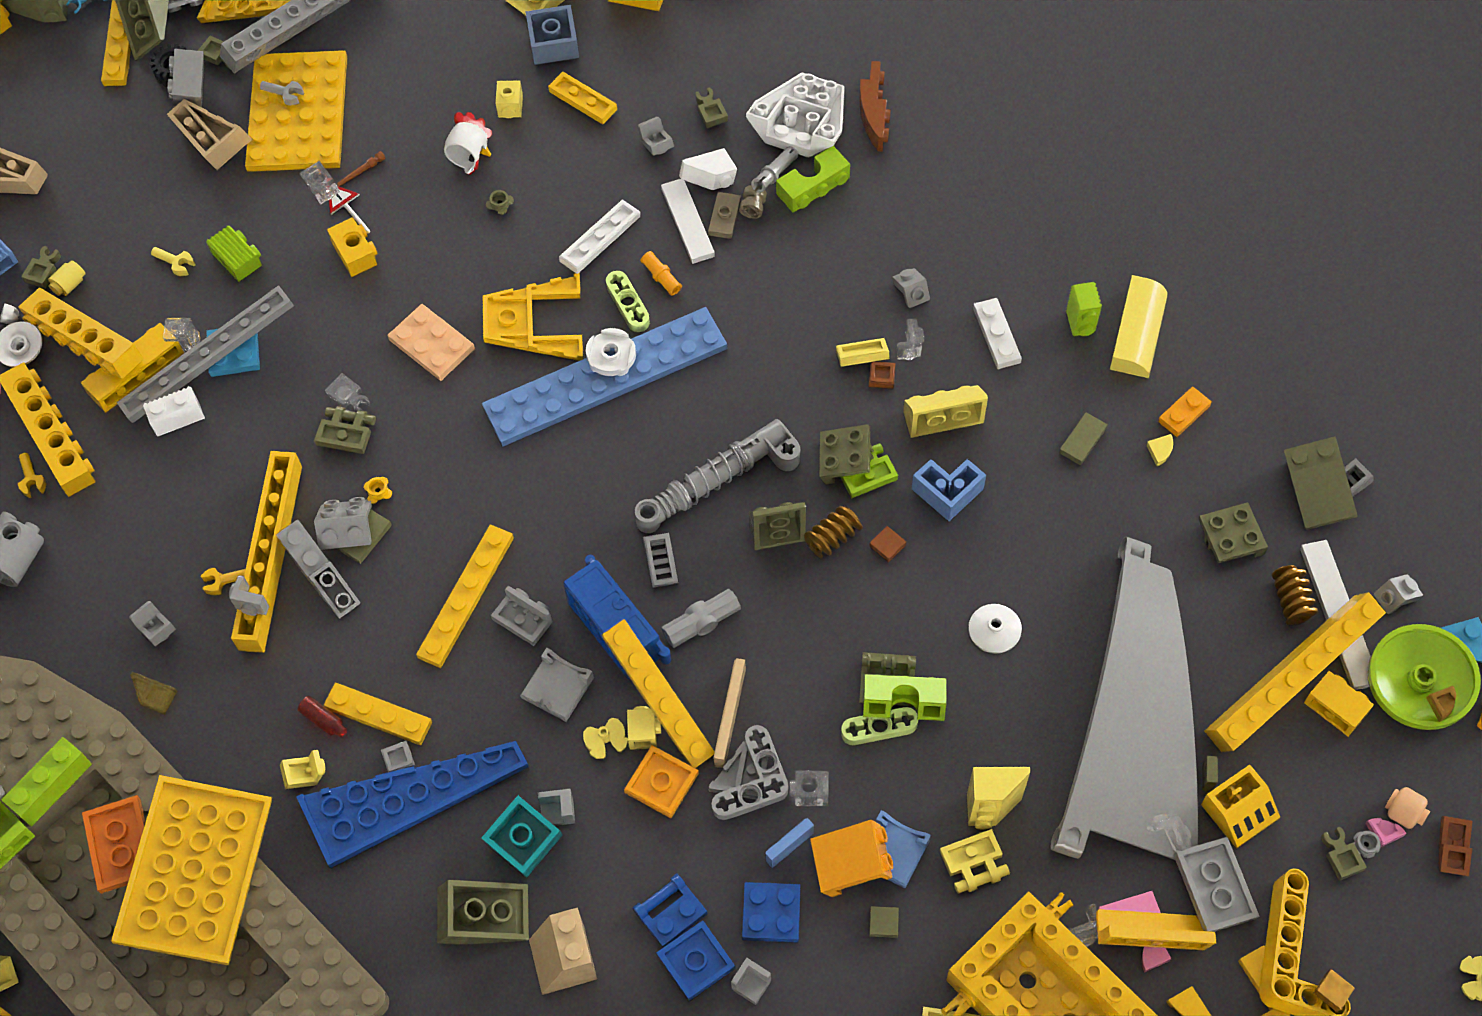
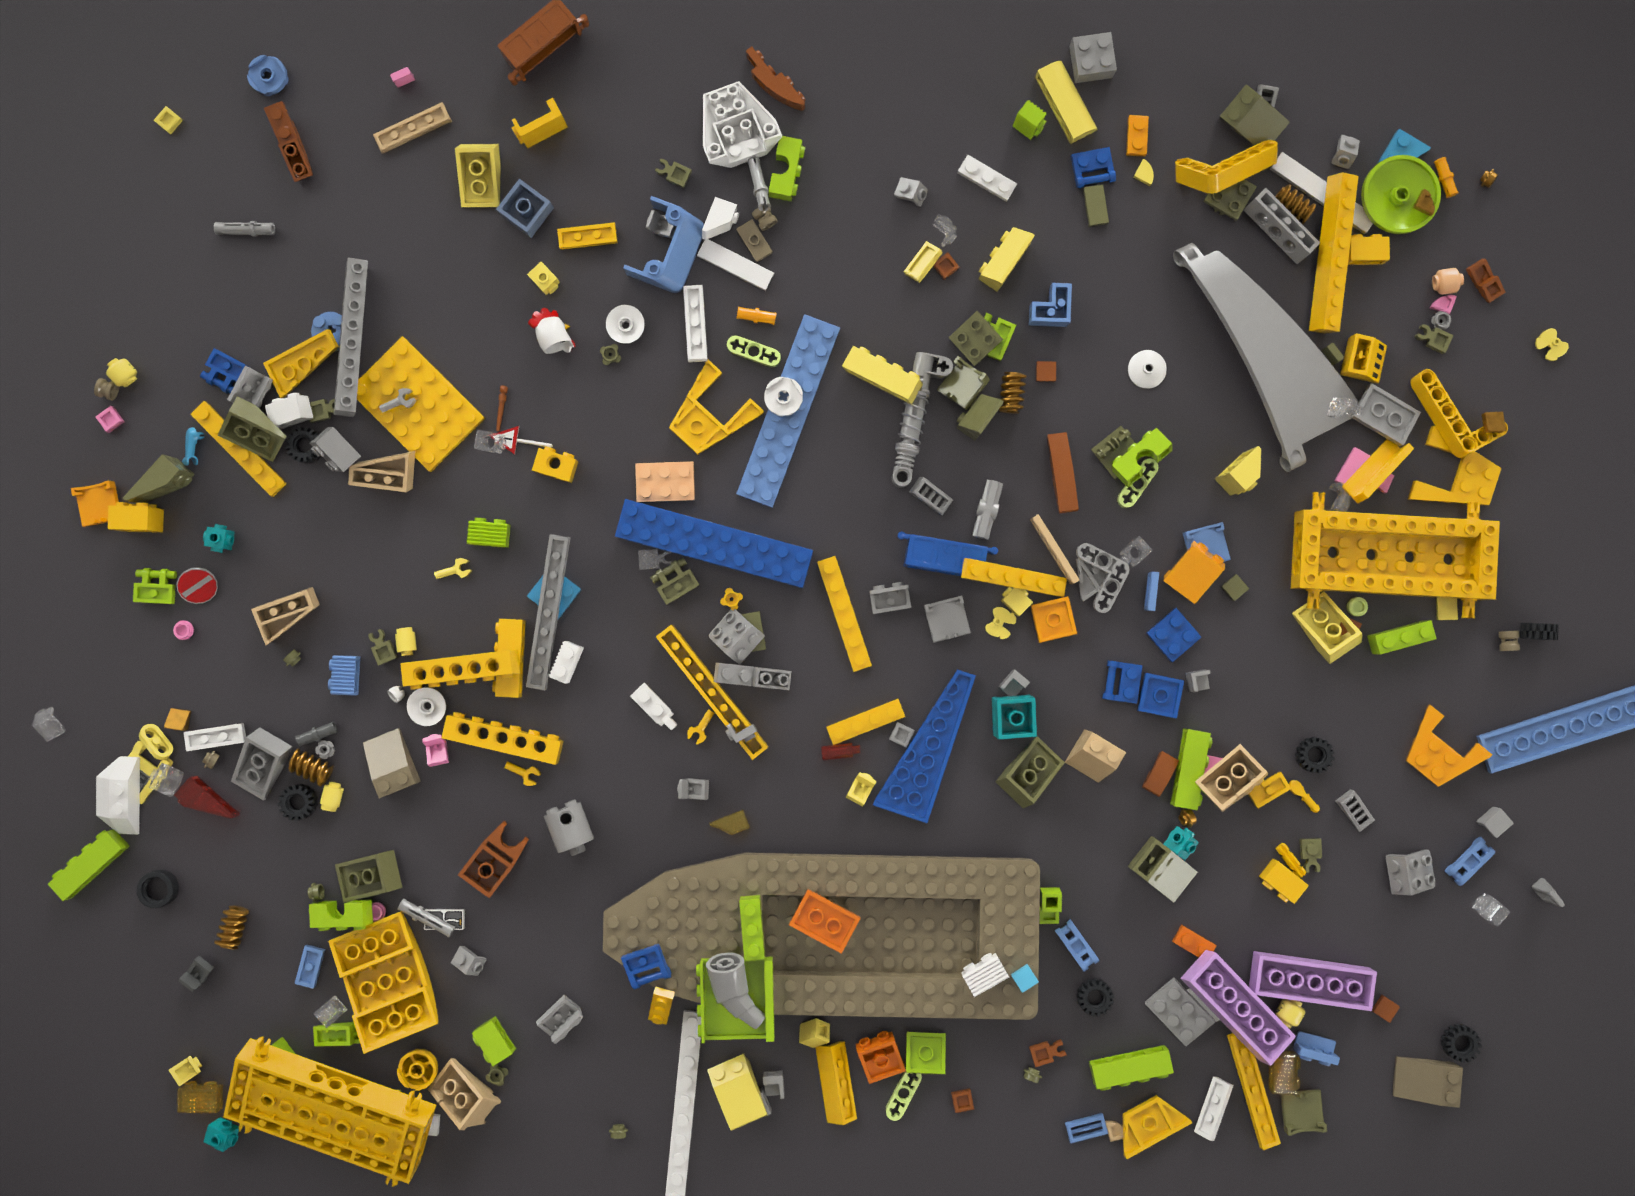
camera: 45 degrees left, 25 degrees up
(23, 75) = (218, 538): none -> teal brick
(181, 330) = (517, 613): clear bracket -> none
(190, 28) = (289, 410): none -> white brick
(192, 870) = (880, 898): yellow plate -> none
(205, 522) = (654, 706): none -> white hinge
(416, 428) = (714, 543): none -> blue brick
(534, 180) = (621, 315): none -> white dish
(642, 169) = (675, 268): none -> medium blue windscreen
(722, 409) = (882, 374): none -> light yellow brick
(793, 483) = (963, 383): none -> piece
(810, 647) = (1062, 472): none -> dark orange slope
(970, 853) = (1247, 511): light yellow plate -> none
(1115, 398) = (1093, 161): none -> blue plate
(1200, 309) = (1092, 57): none -> light grey brick
(1253, 504) = (1228, 172): none -> yellow beam
(1261, 603) = (1281, 226): none -> light grey brick

